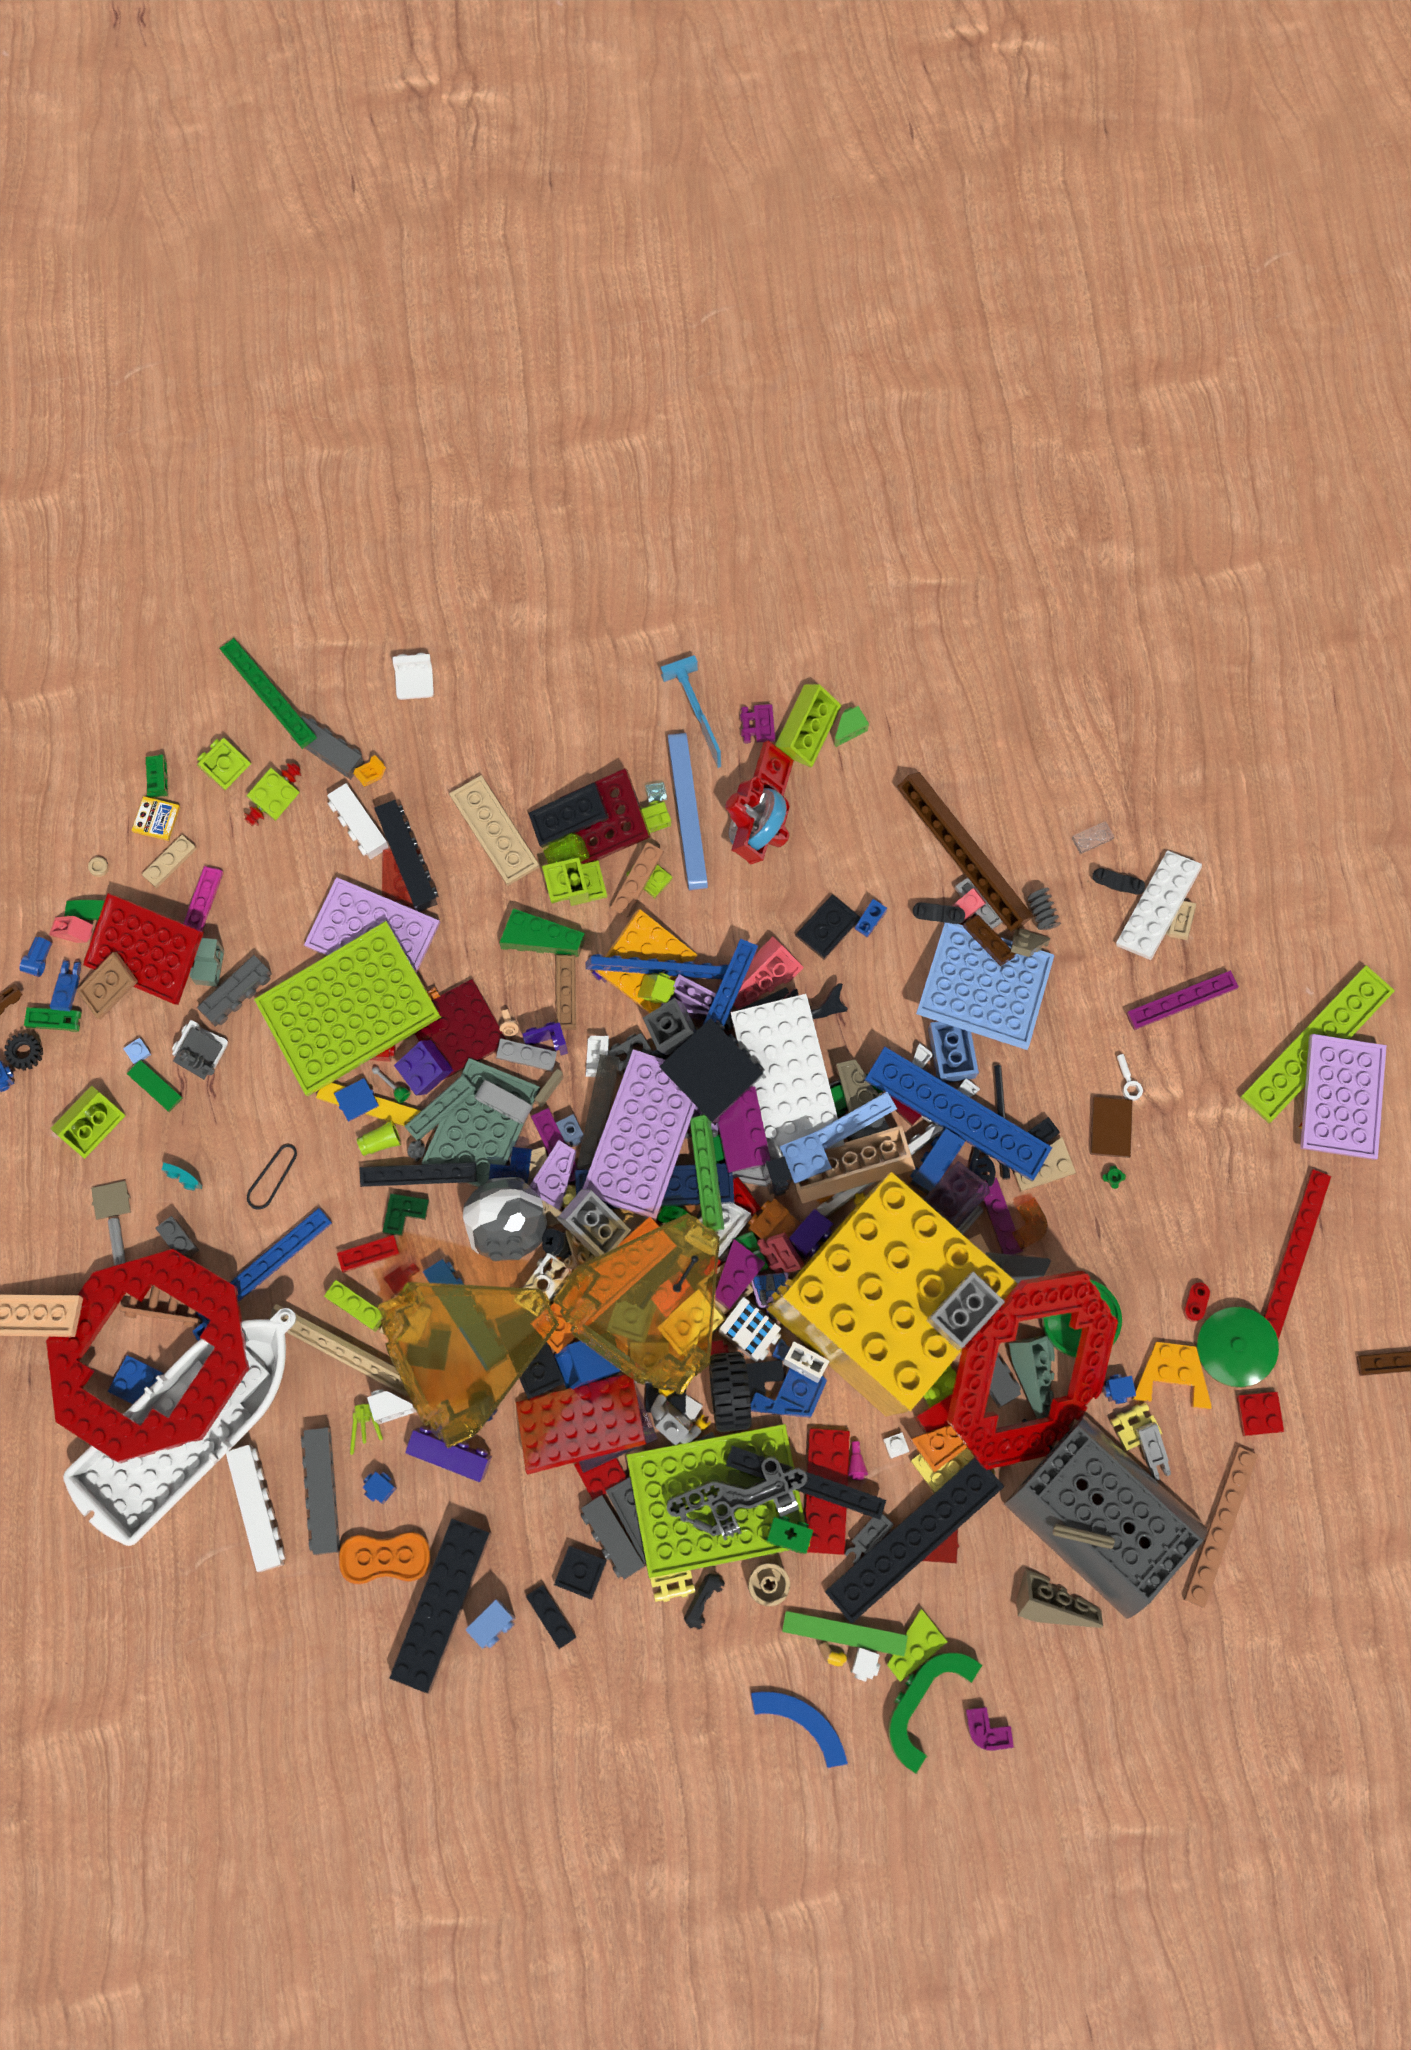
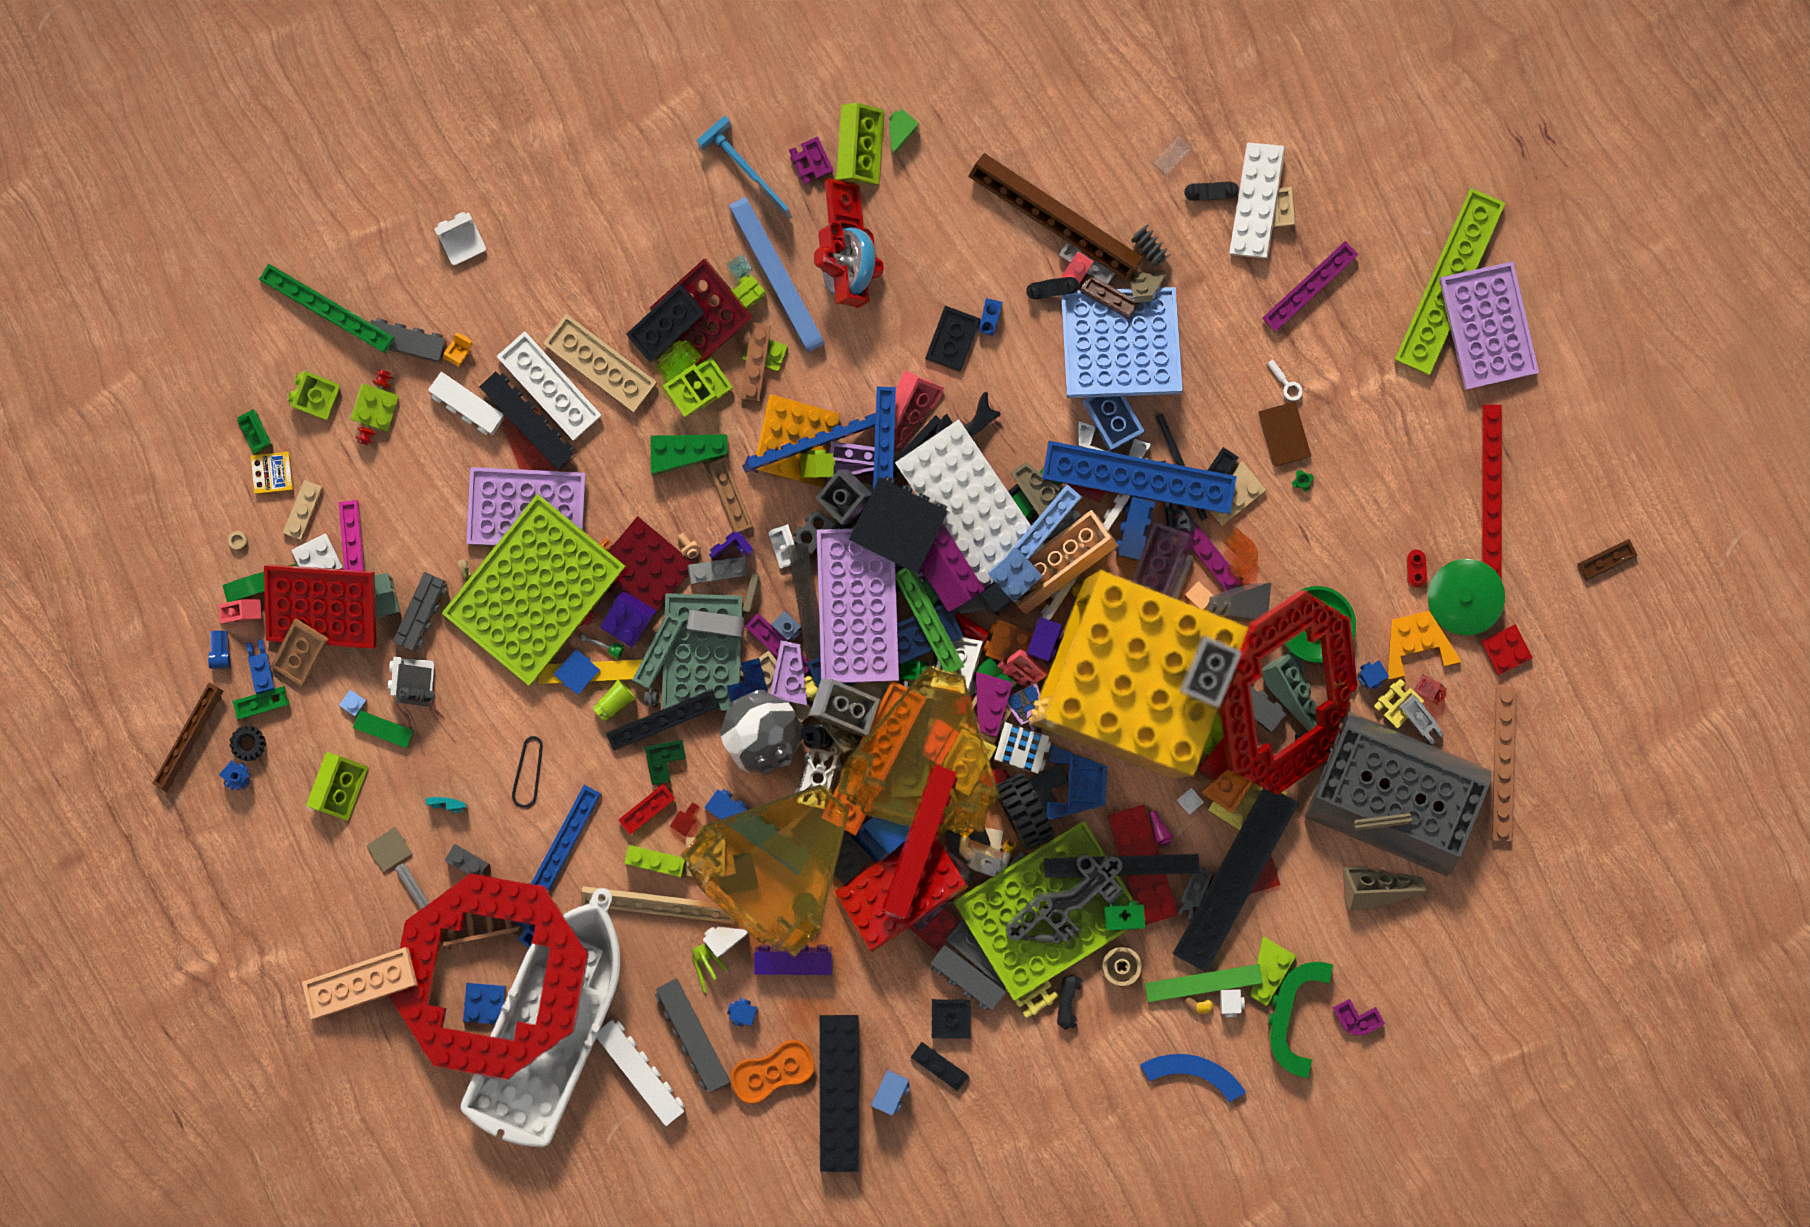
camera: 20 degrees left, 10 degrees up
(165, 902) = (317, 554): none -> white plate
(292, 966) = (464, 569): none -> tan tile
(439, 833) = (549, 386): none -> white plate
(614, 1381) = (919, 842): none -> red brick
(677, 1287) = (942, 736): black hinge -> none
(805, 1362) = (1082, 758): white brick -> none
(1172, 1424) = (1430, 689): none -> clear red bracket

